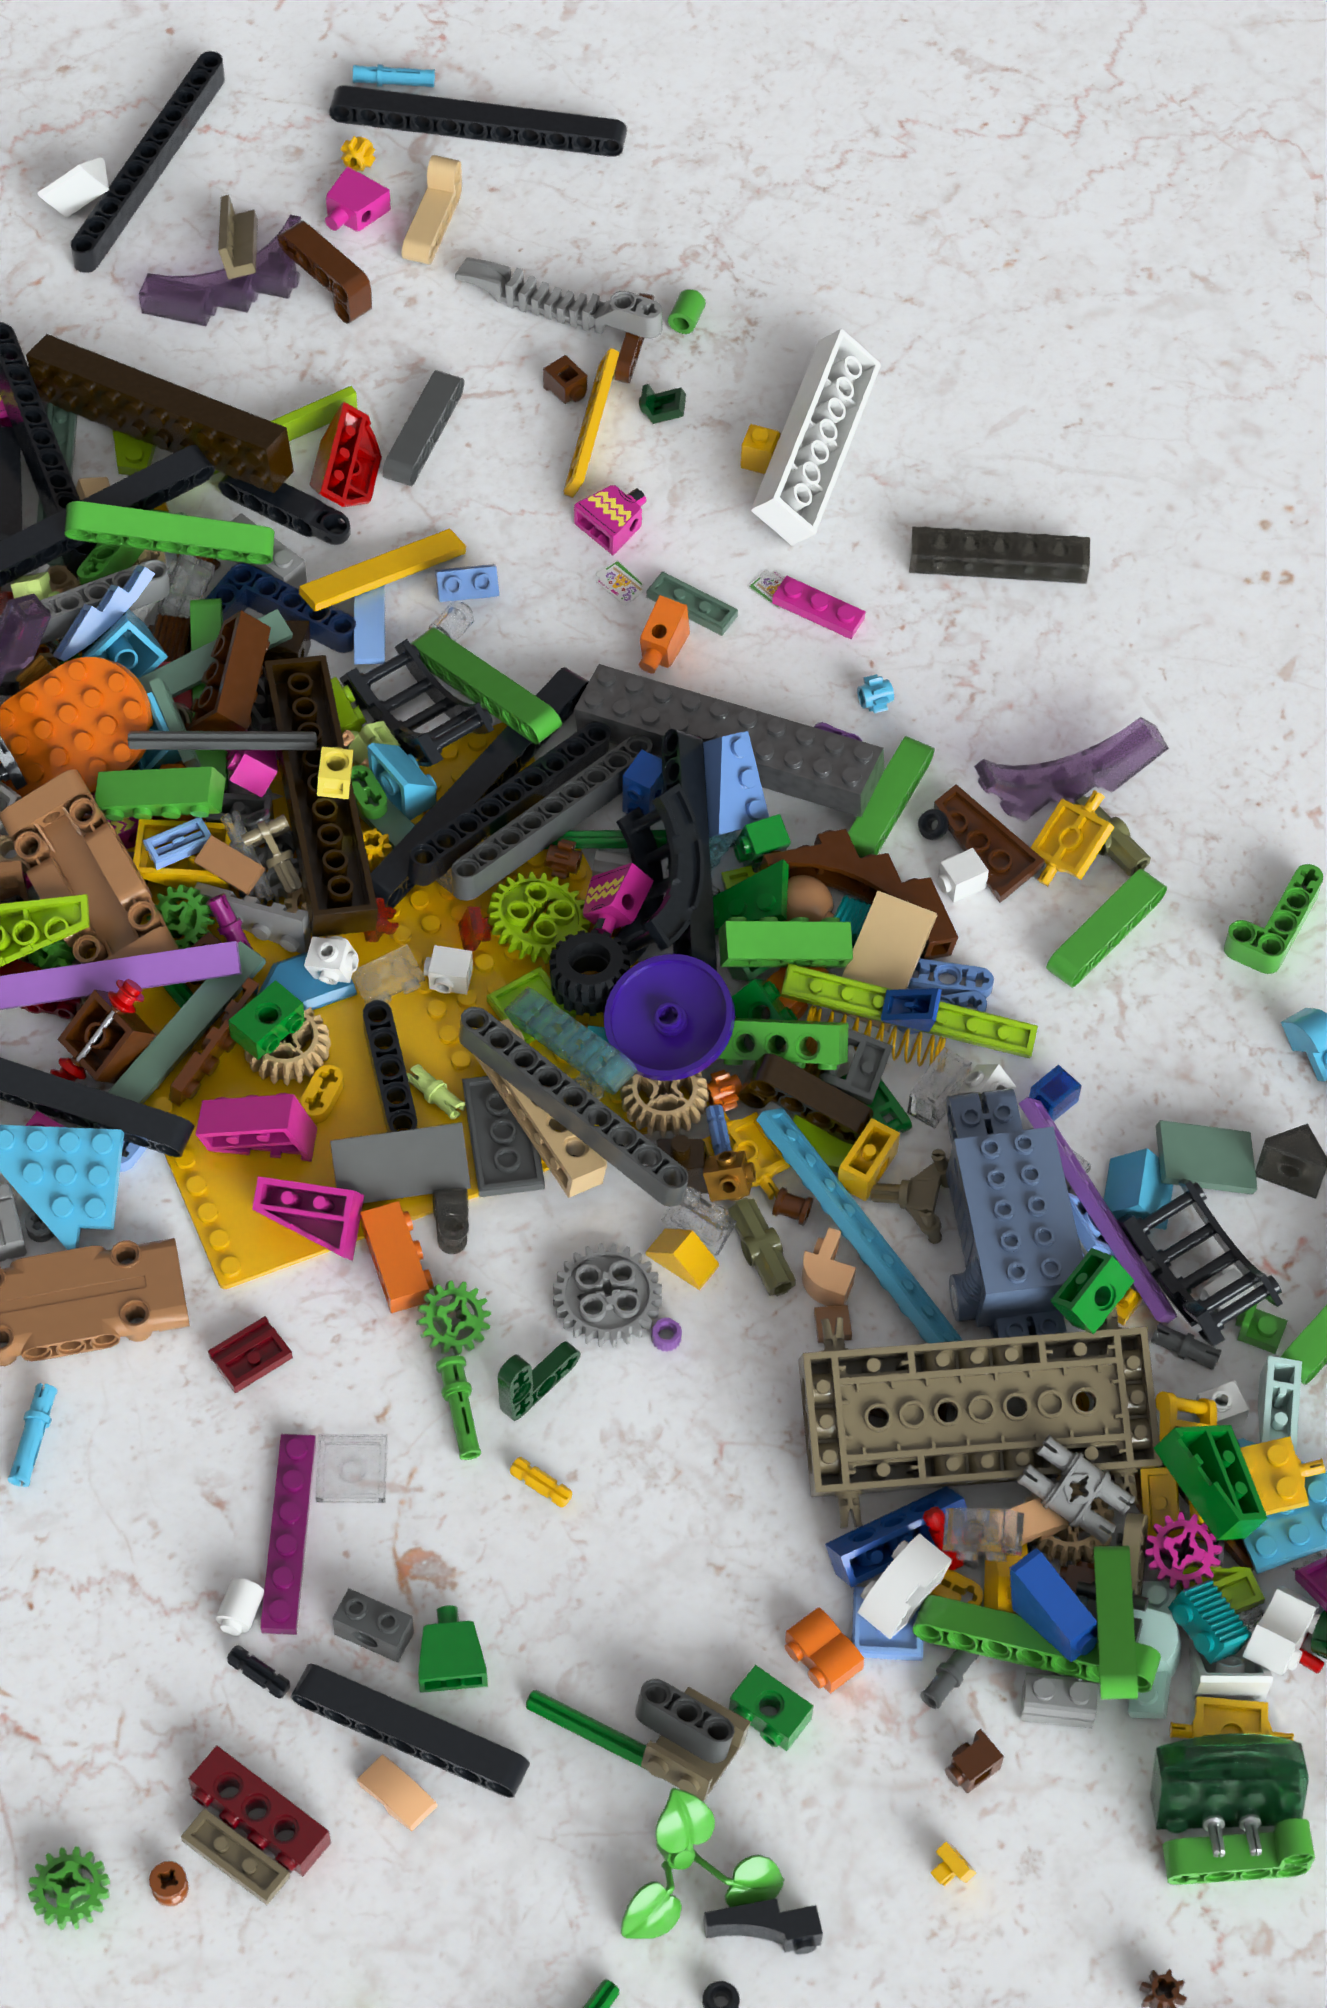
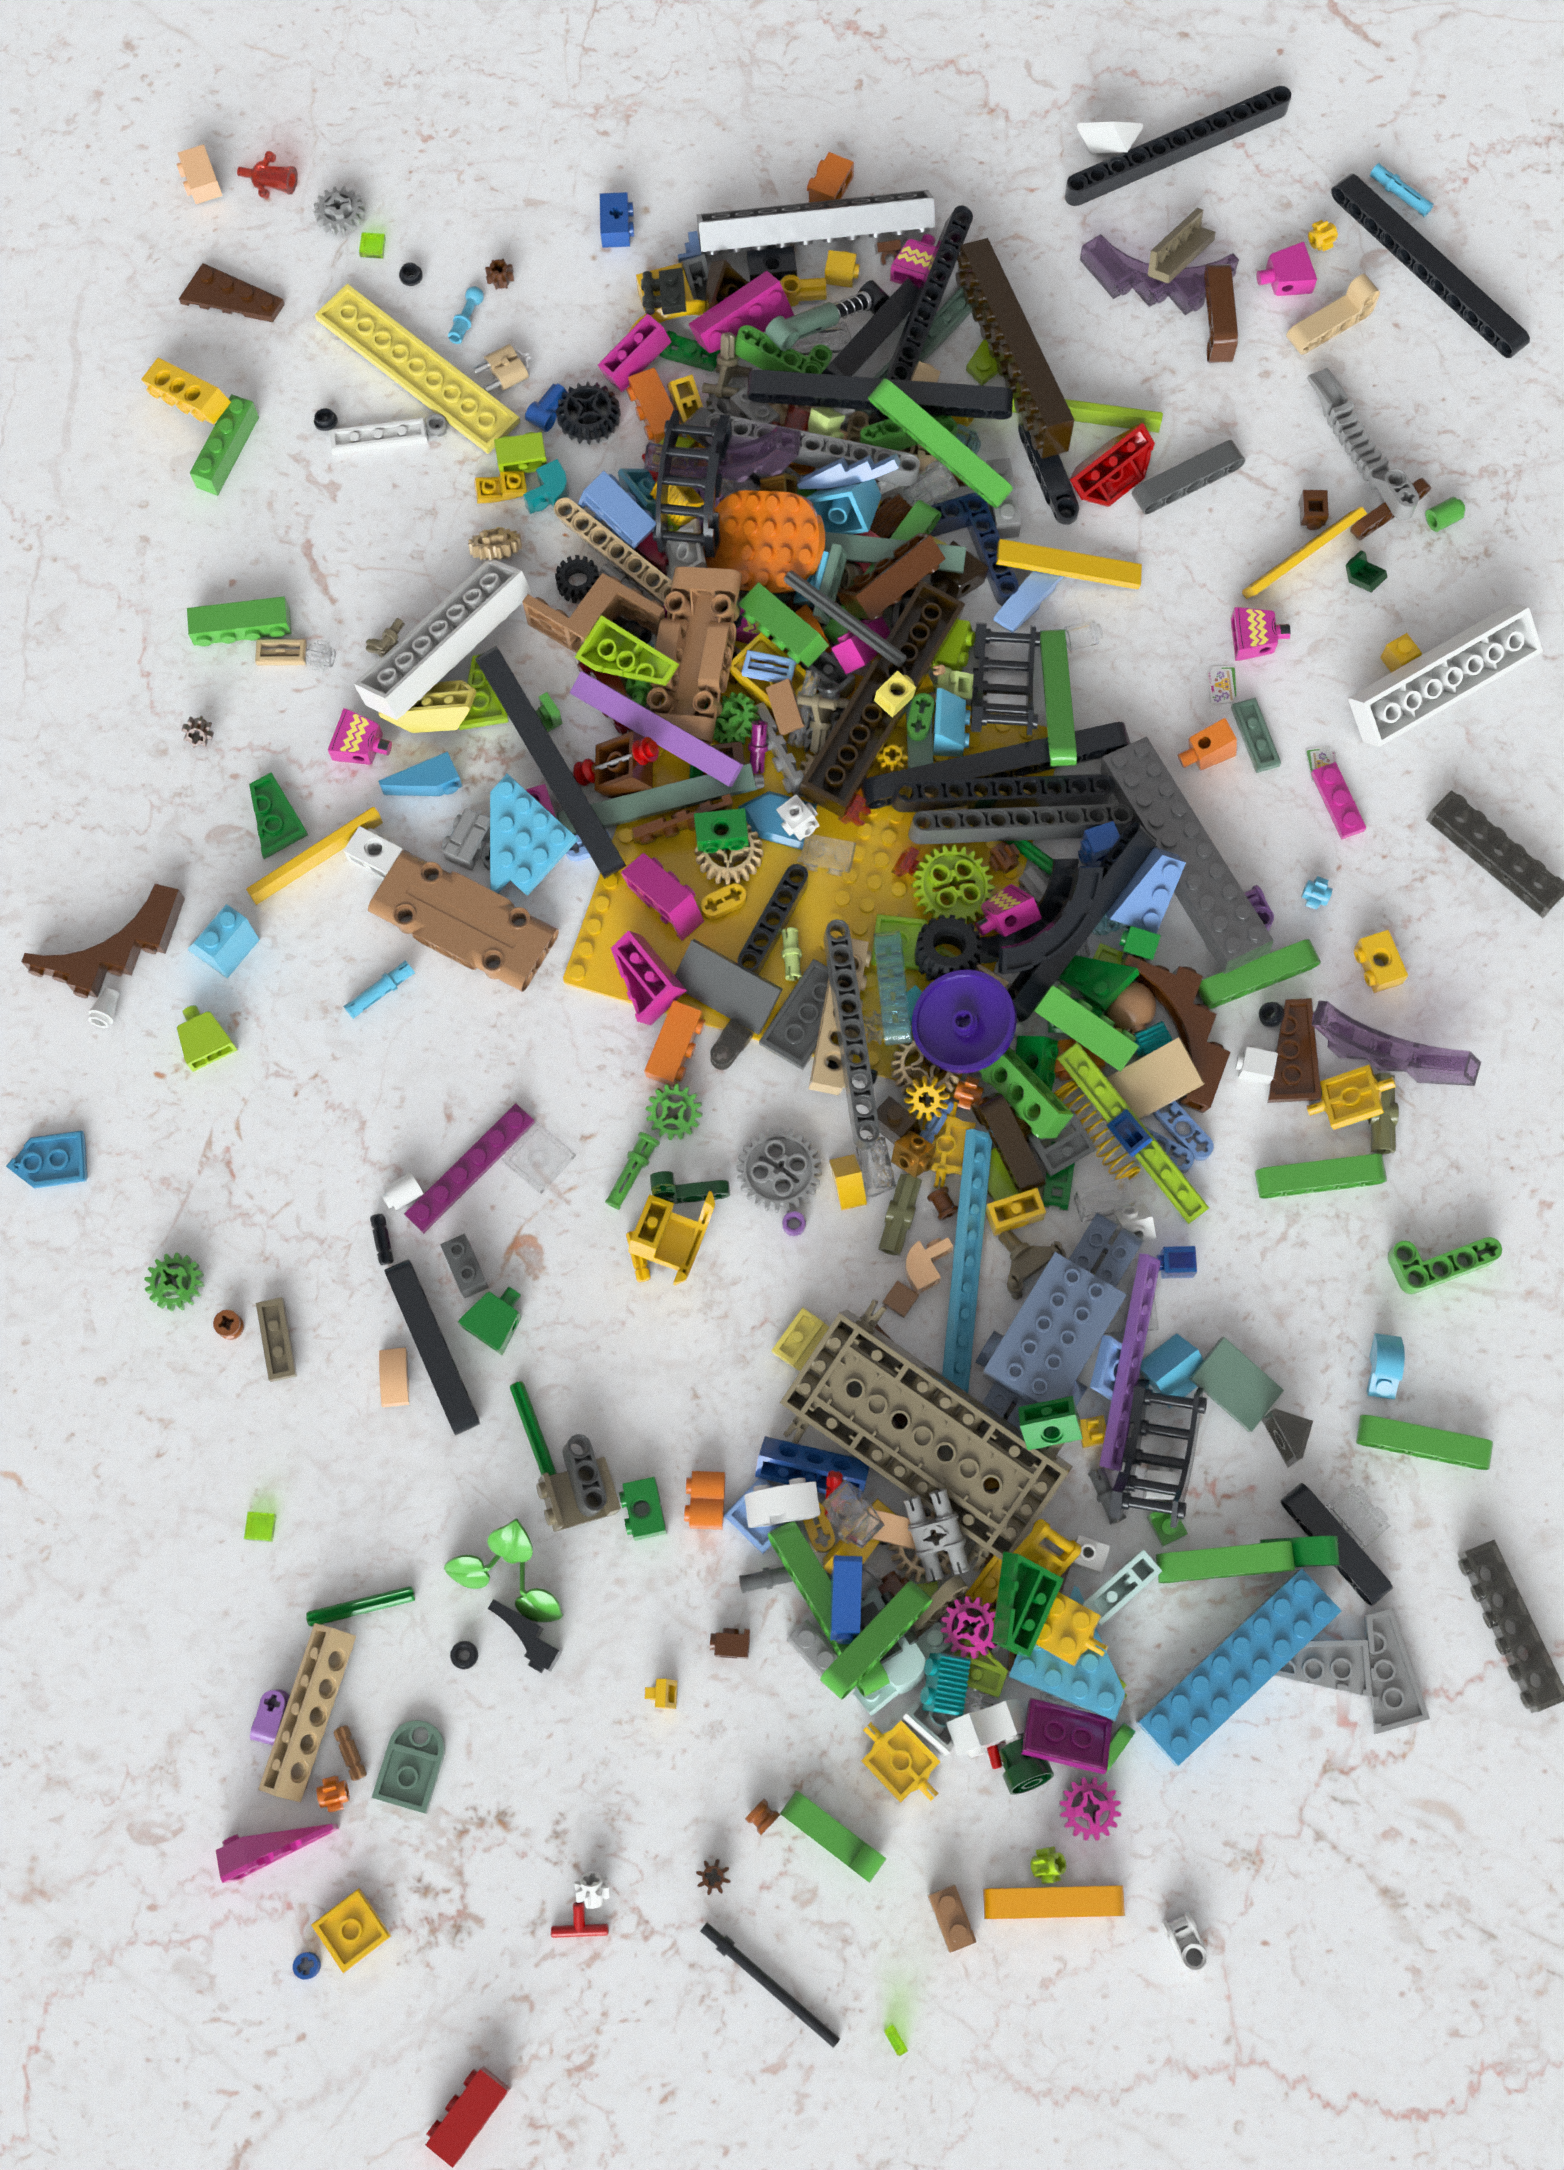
camera: 45 degrees right, 15 degrees up
(223, 1771) = (323, 1362): dark red brick -> none
(250, 1354) = (540, 1038): dark red plate -> none
(449, 969) = (867, 879): white brick -> none
(467, 583) = (1115, 613): medium blue brick -> none
(559, 1435) = (669, 1236): none -> yellow piece
(694, 1099) = (932, 1091): none -> yellow gear
(776, 1432) = (800, 1339): none -> light yellow plate
(985, 711) = (1380, 947): none -> yellow brick
(1155, 1897) = (762, 1816): none -> dark orange wheel
(1227, 1784) = (862, 1794): clear green piece -> none

